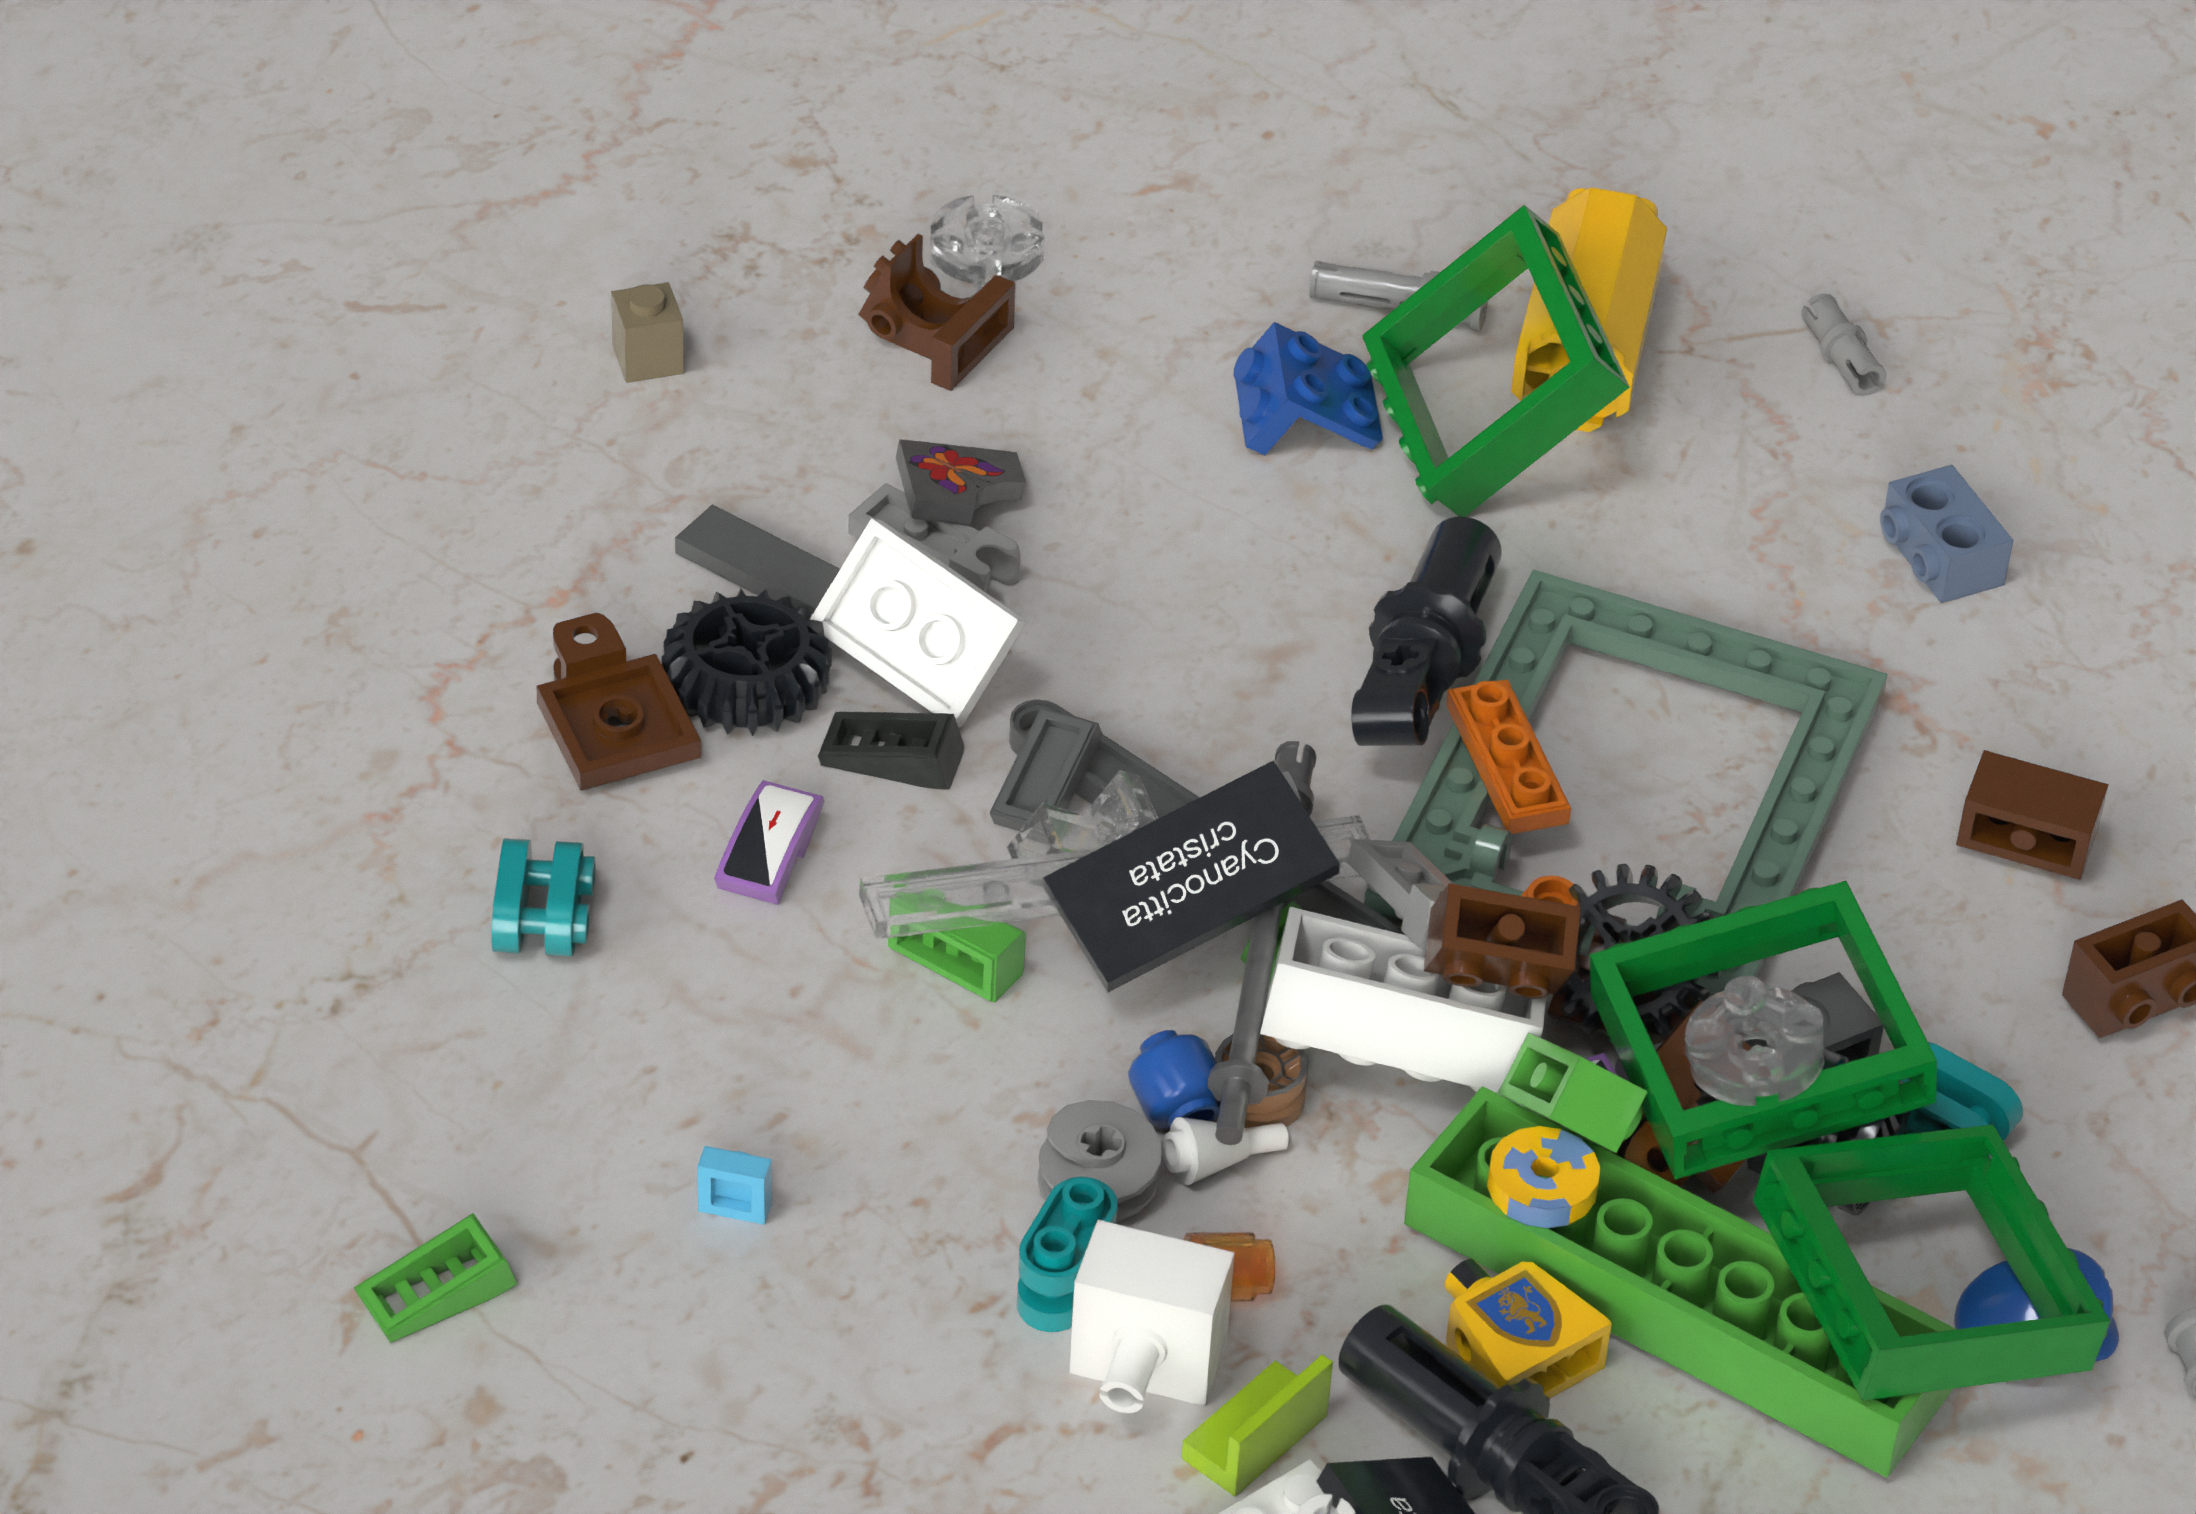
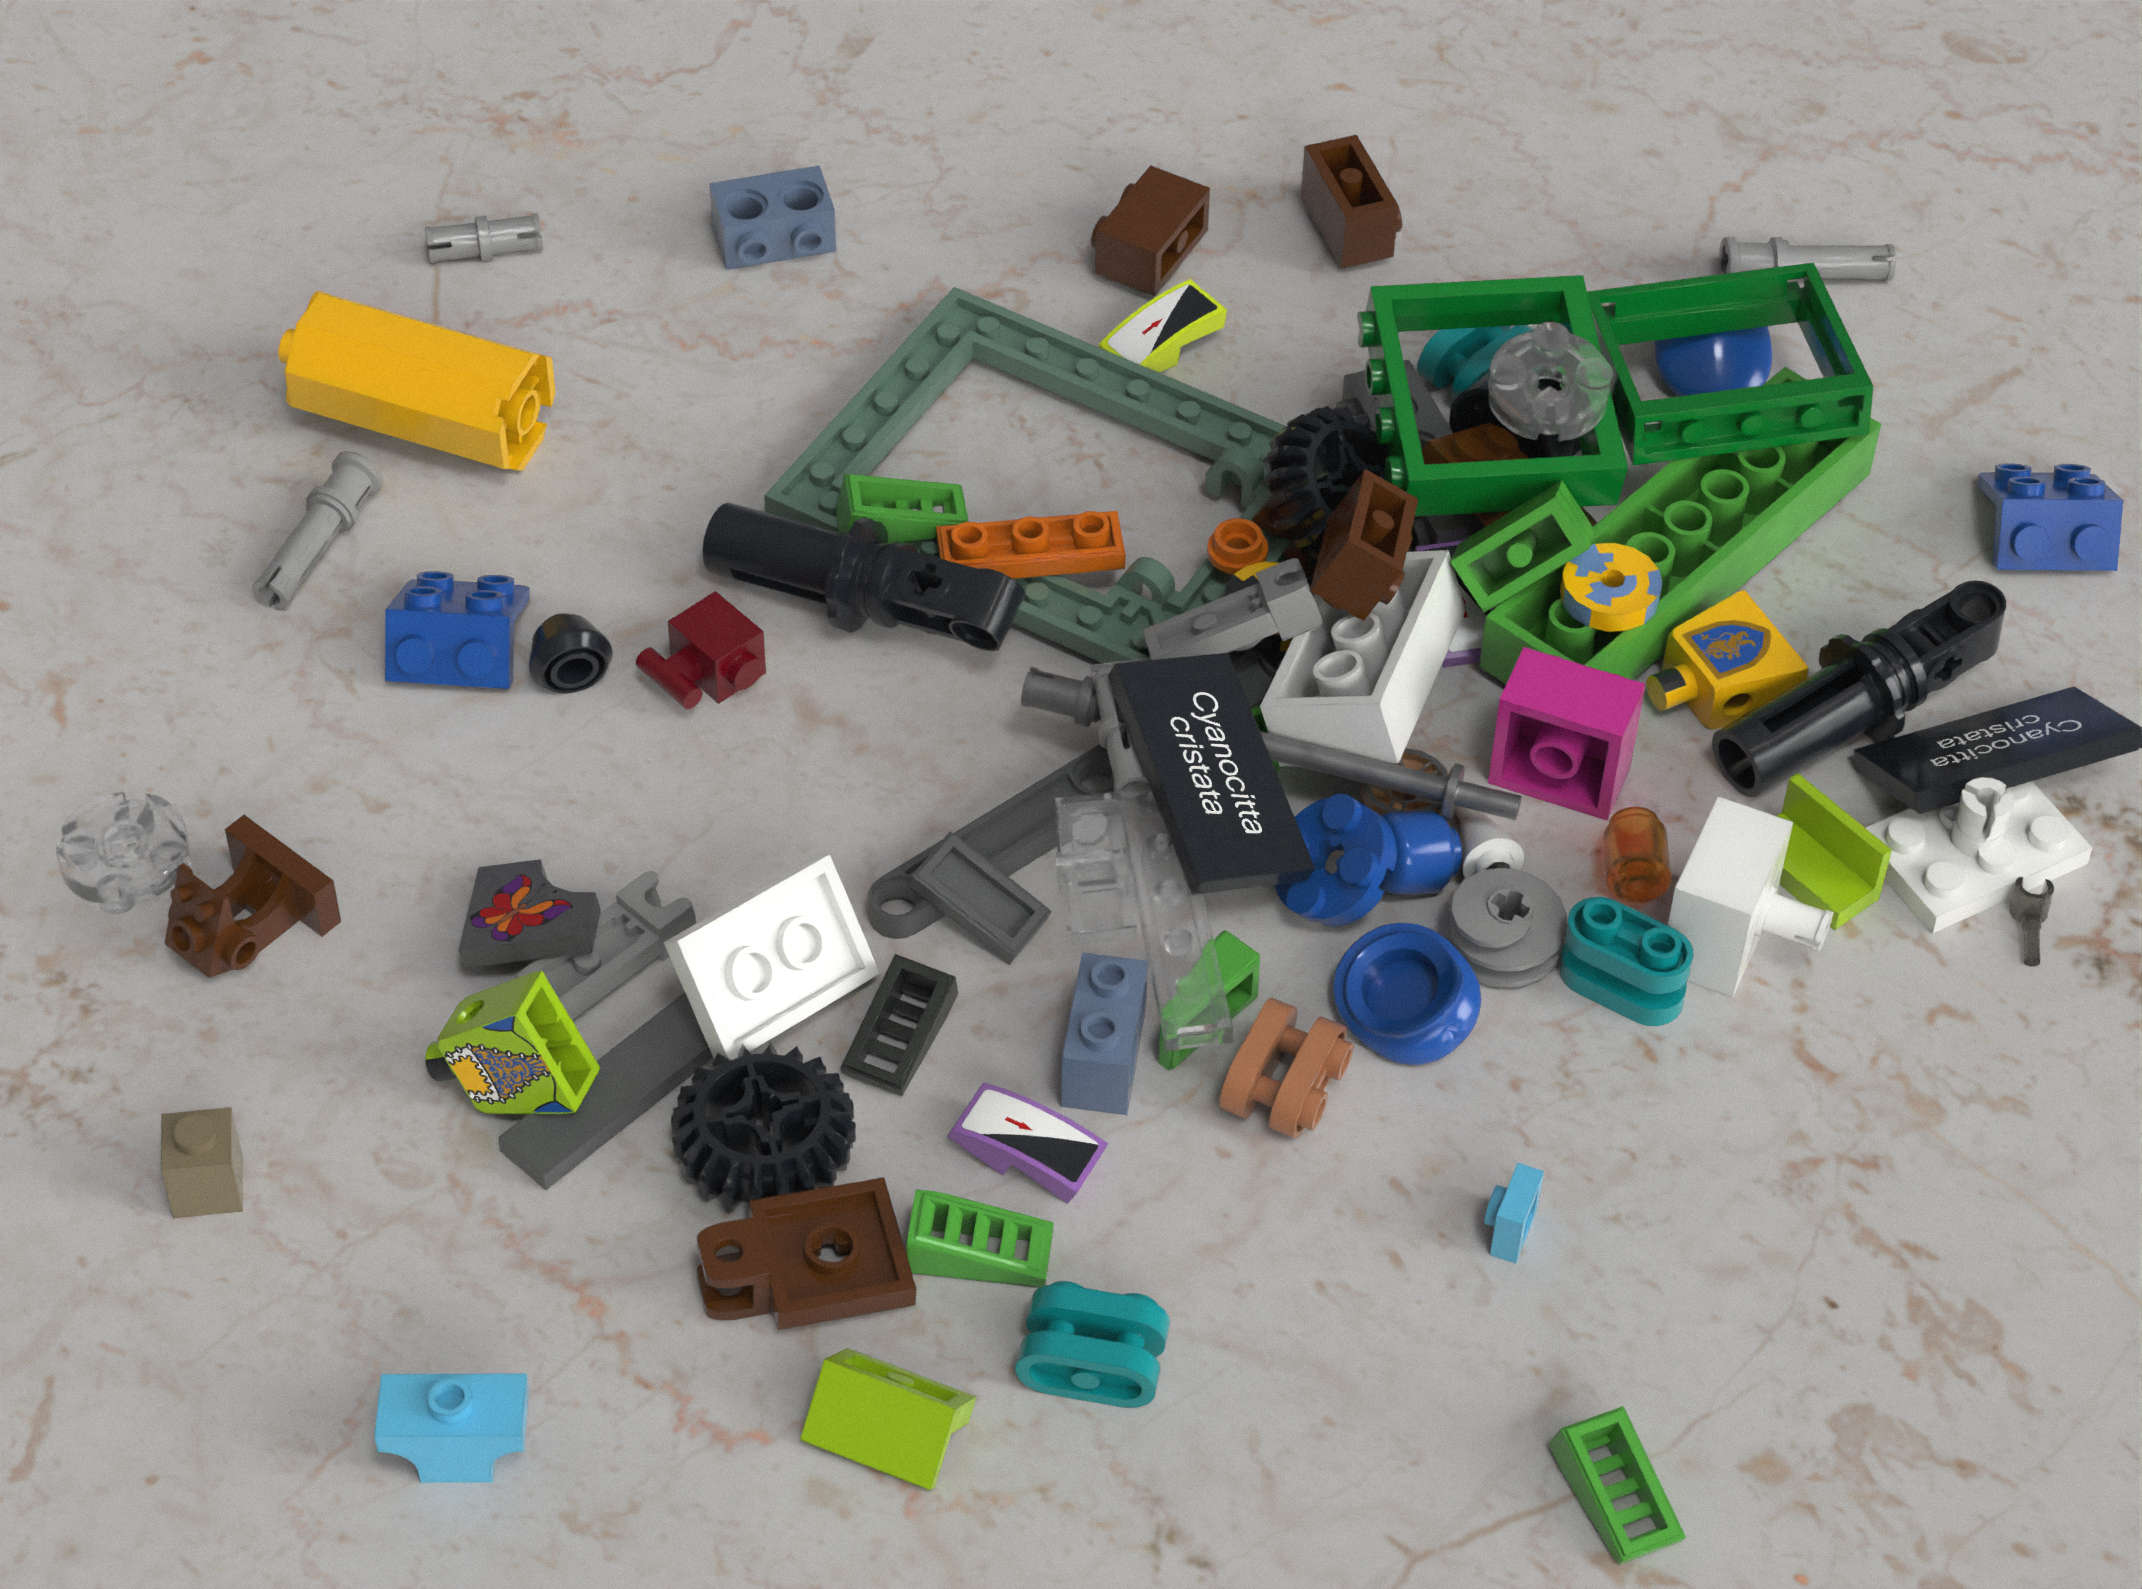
camera: 80 degrees left, 5 degrees up
(398, 503) = (452, 1422): none -> medium azure brick
(460, 776) = (885, 1416): none -> lime panel
(651, 780) = (962, 1216): none -> bright green slope
(780, 482) = (515, 1050): none -> lime torso
(882, 1005) = (1301, 1095): none -> nougat brick
(883, 848) = (1104, 1033): none -> sand blue brick
(992, 1091) = (1407, 993): none -> blue piece
(1140, 1014) = (1368, 851): none -> blue plate
(1286, 466) = (568, 654): none -> black cone
(1316, 560) = (708, 647): none -> dark red brick
(1353, 1177) = (1565, 733): none -> dark pink brick
(1529, 616) = (890, 503): none -> bright green slope
(1539, 419) = (511, 348): green window -> none
(1902, 848) = (1164, 324): none -> slope

